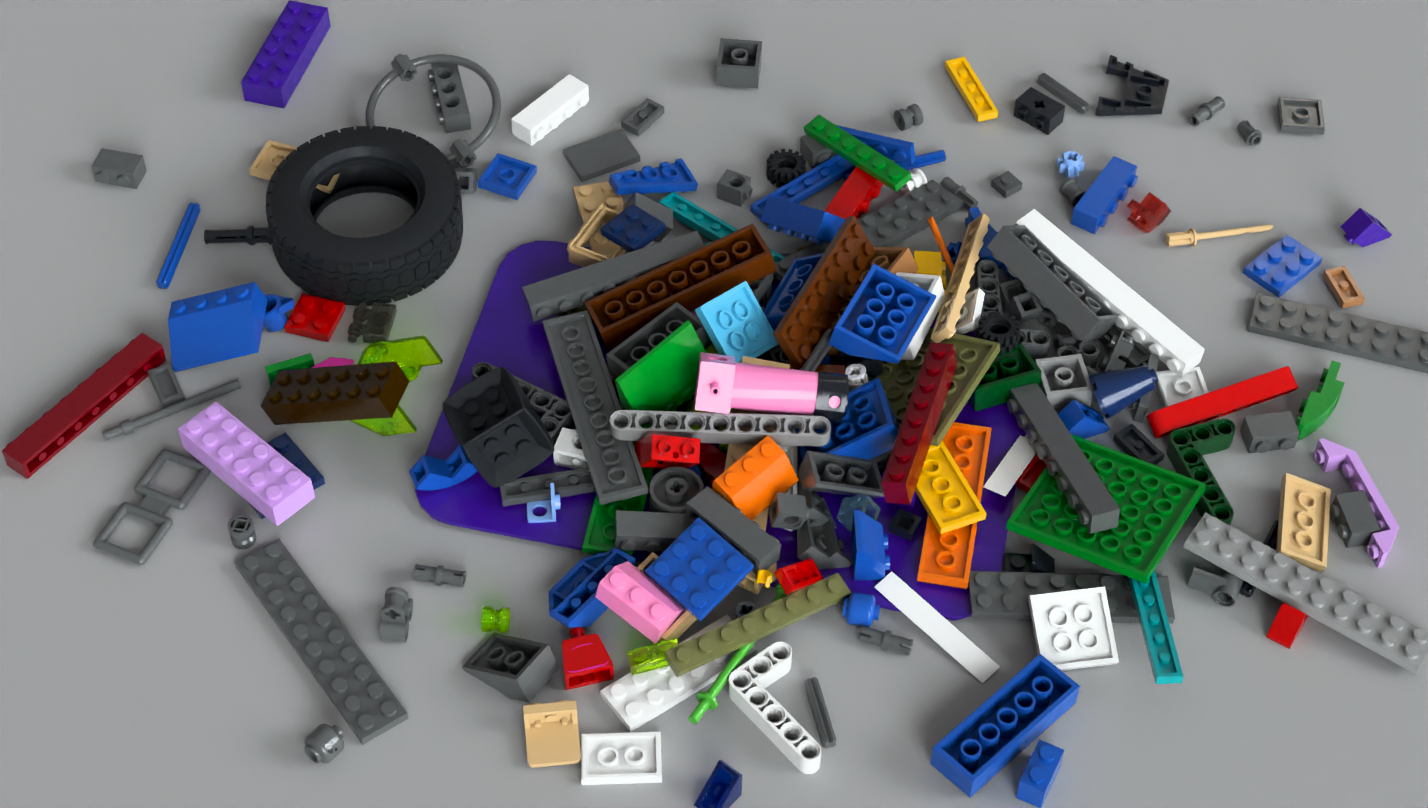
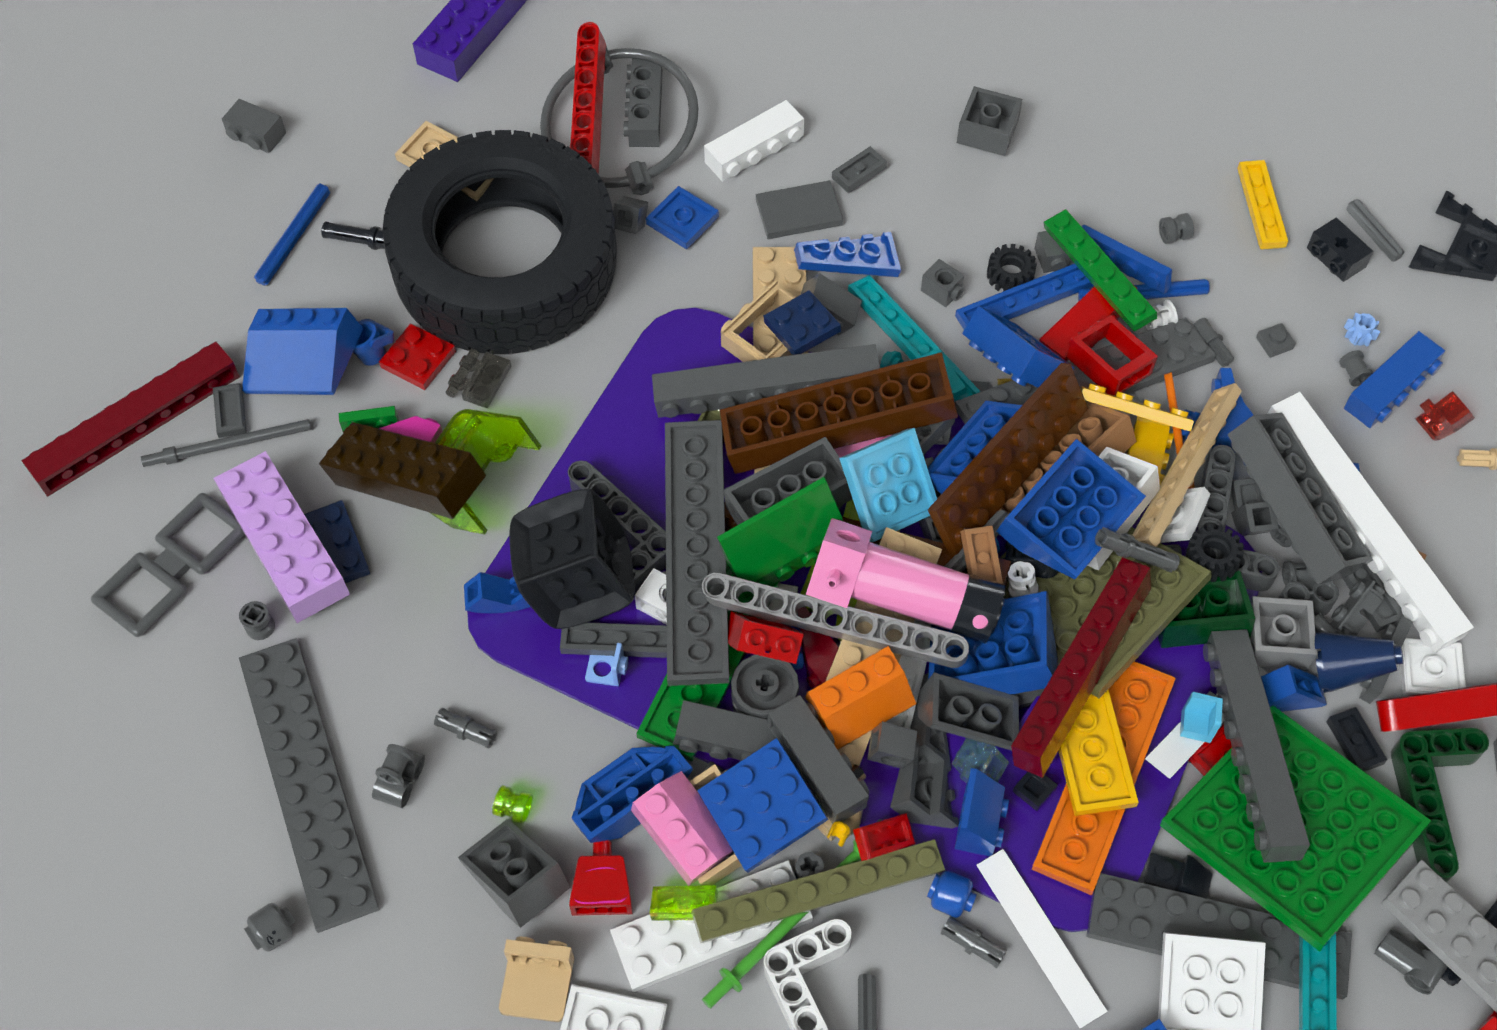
camera: 15 degrees right, 10 degrees up
(403, 87) = (588, 90): none -> red beam
(820, 356) = (981, 553): none -> medium nougat plate
(885, 228) = (1101, 372): none -> red window
(922, 244) = (1148, 410): none -> yellow plate
(932, 332) = (1127, 546): none -> dark grey pin
(1018, 449) = (1201, 717): none -> medium azure panel

